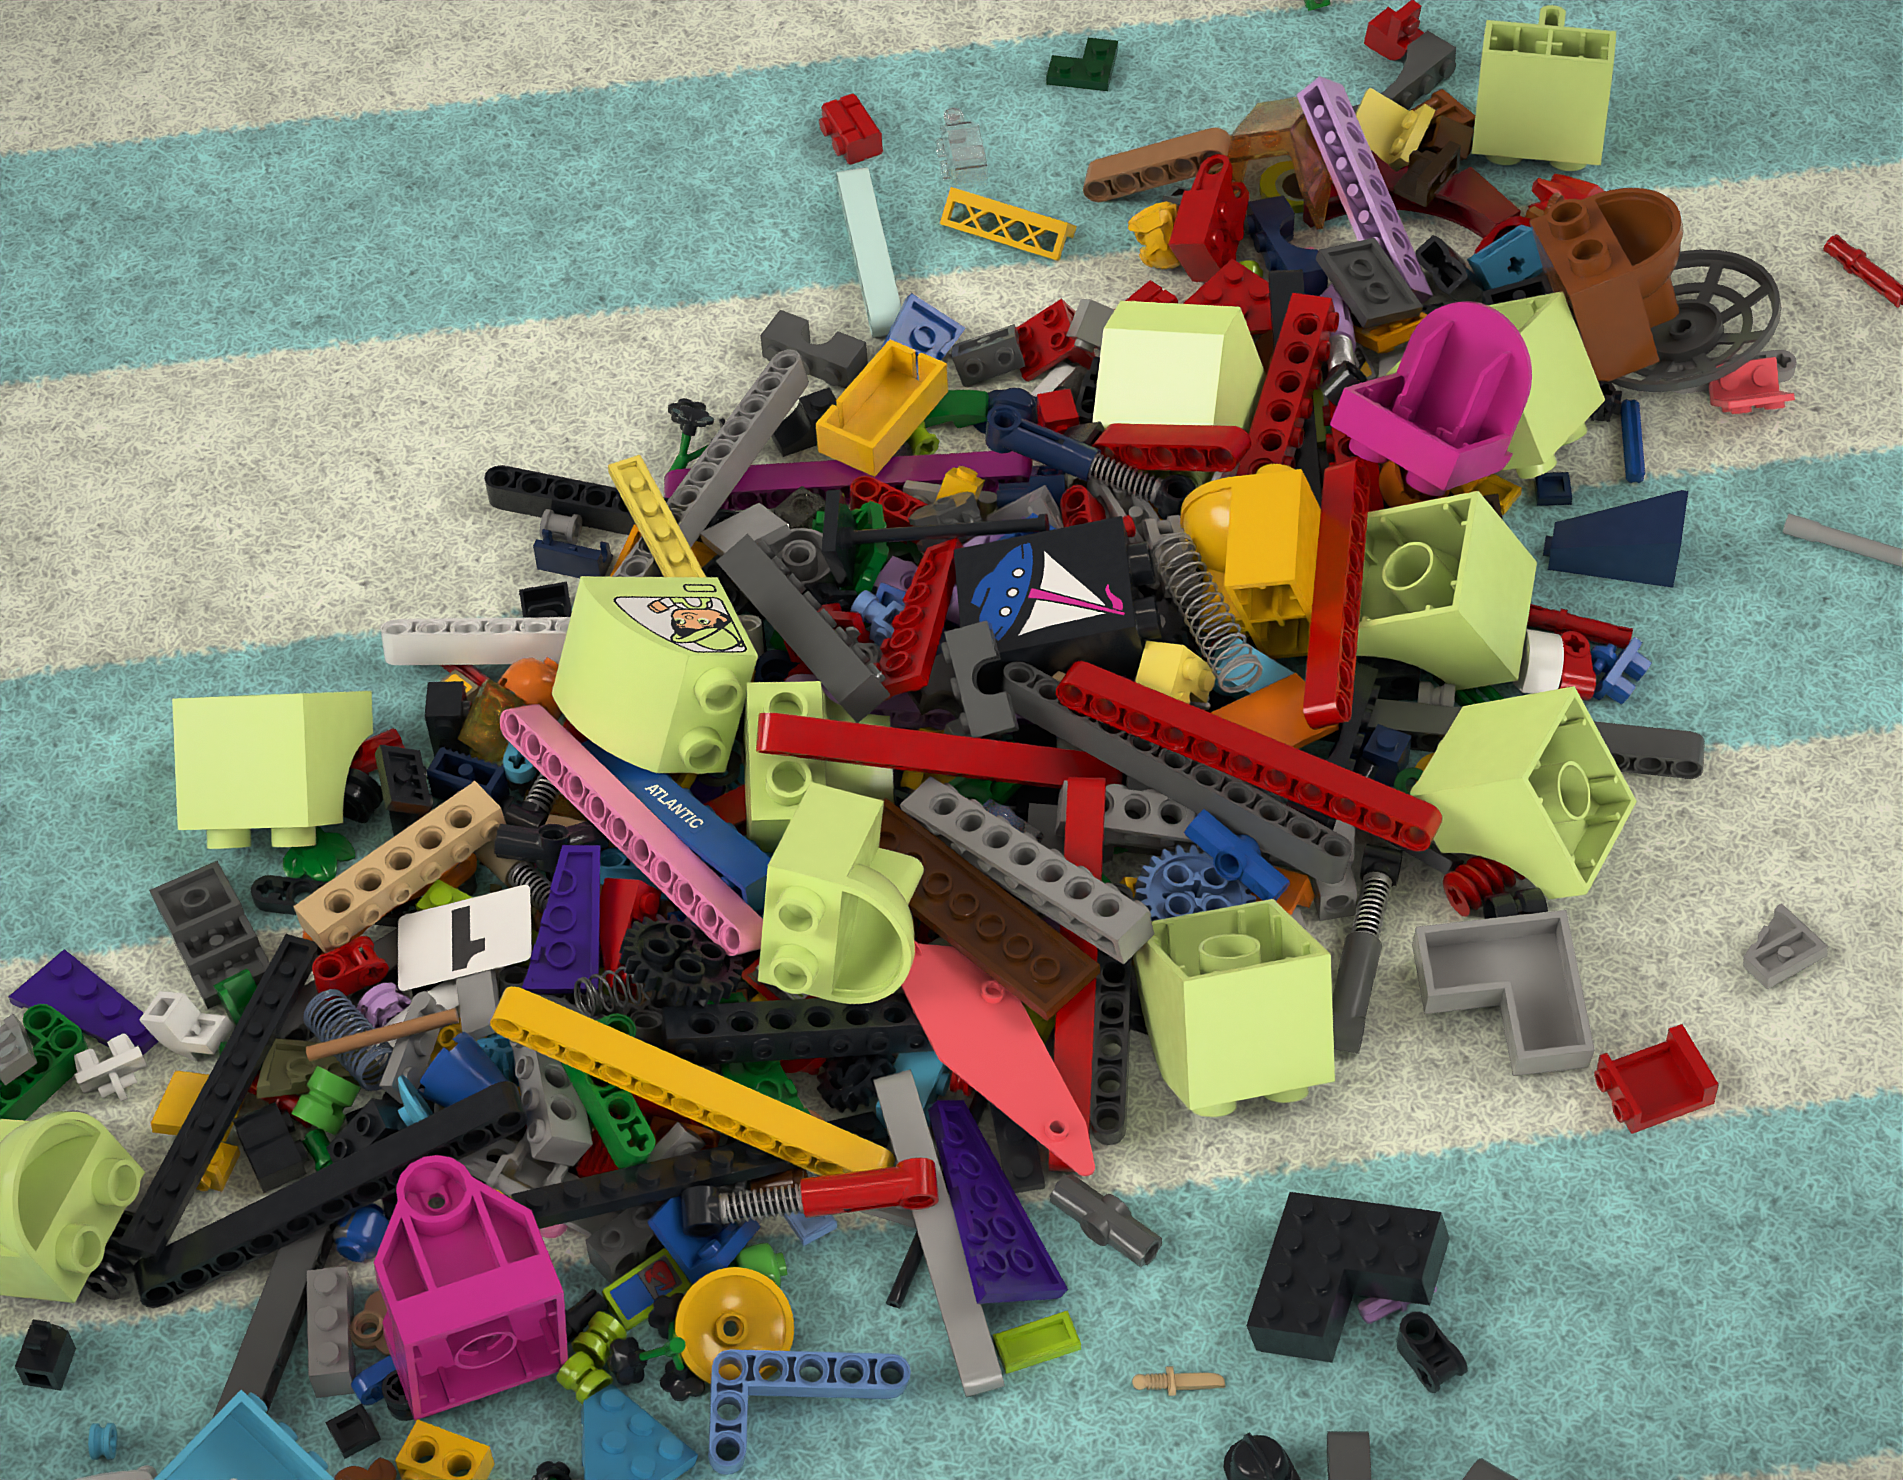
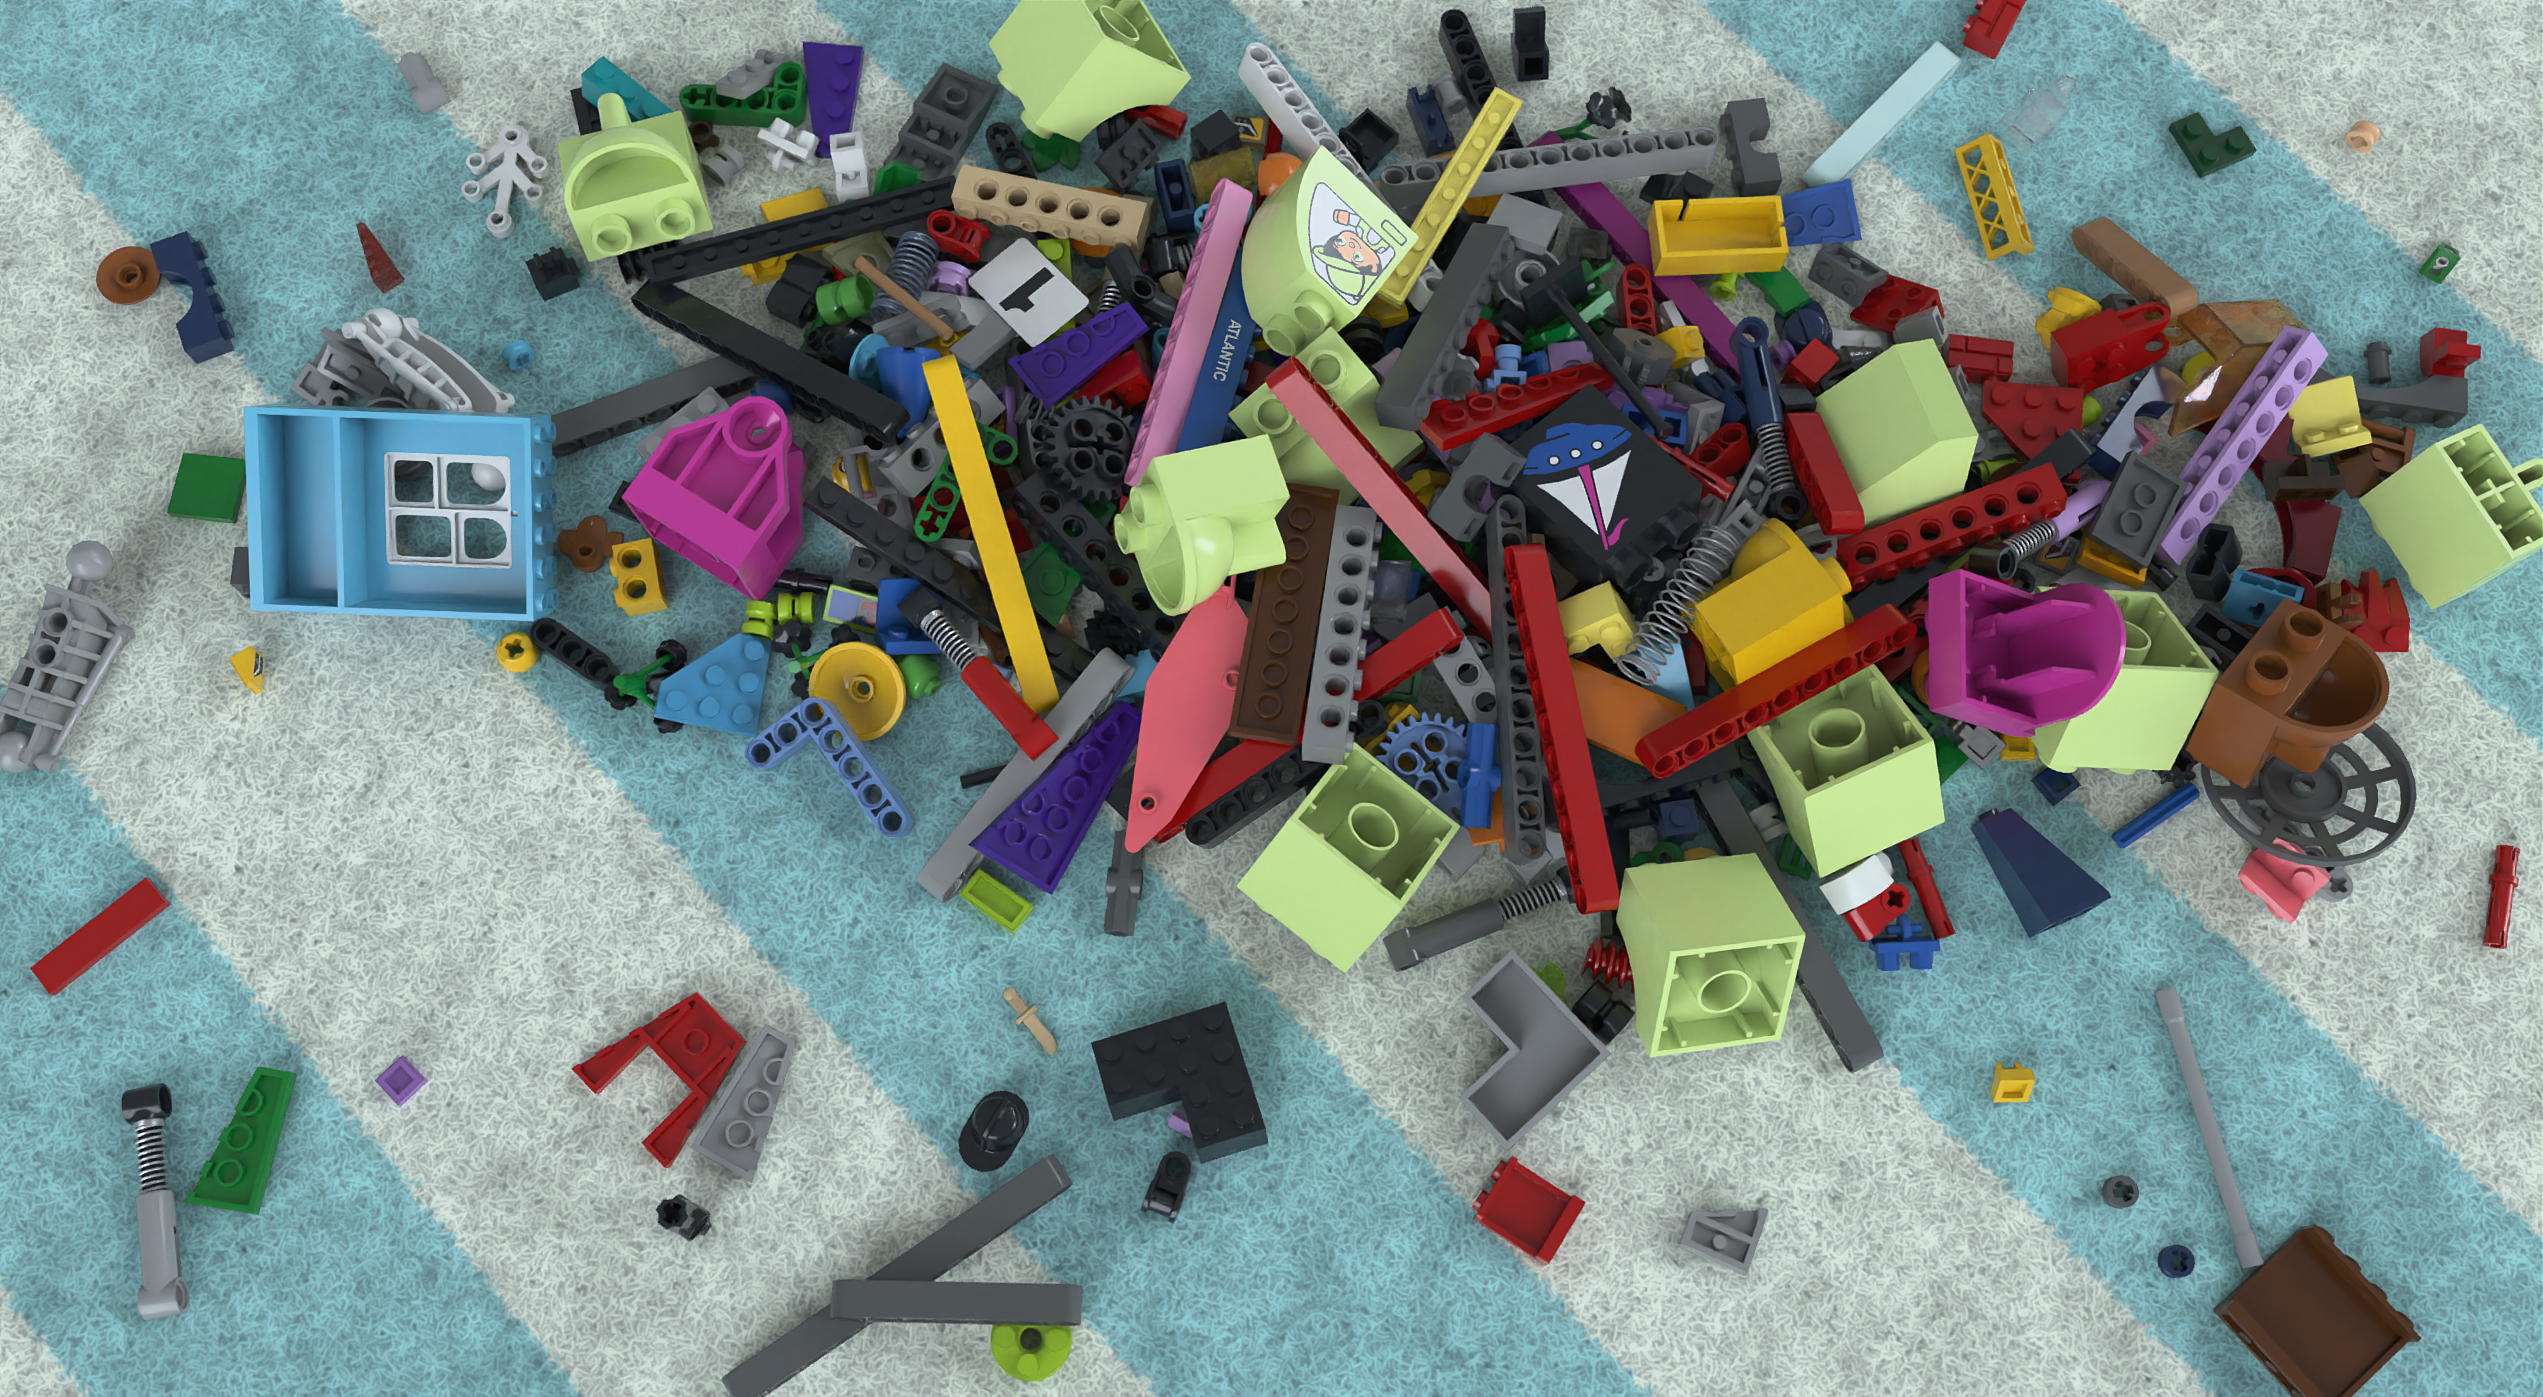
camera: 50 degrees right, 20 degrees up
(574, 447) = (1528, 44): none -> black brick
(1363, 77) = (2378, 362): none -> dark grey pin
(1792, 668) = (2012, 1084): none -> yellow tile

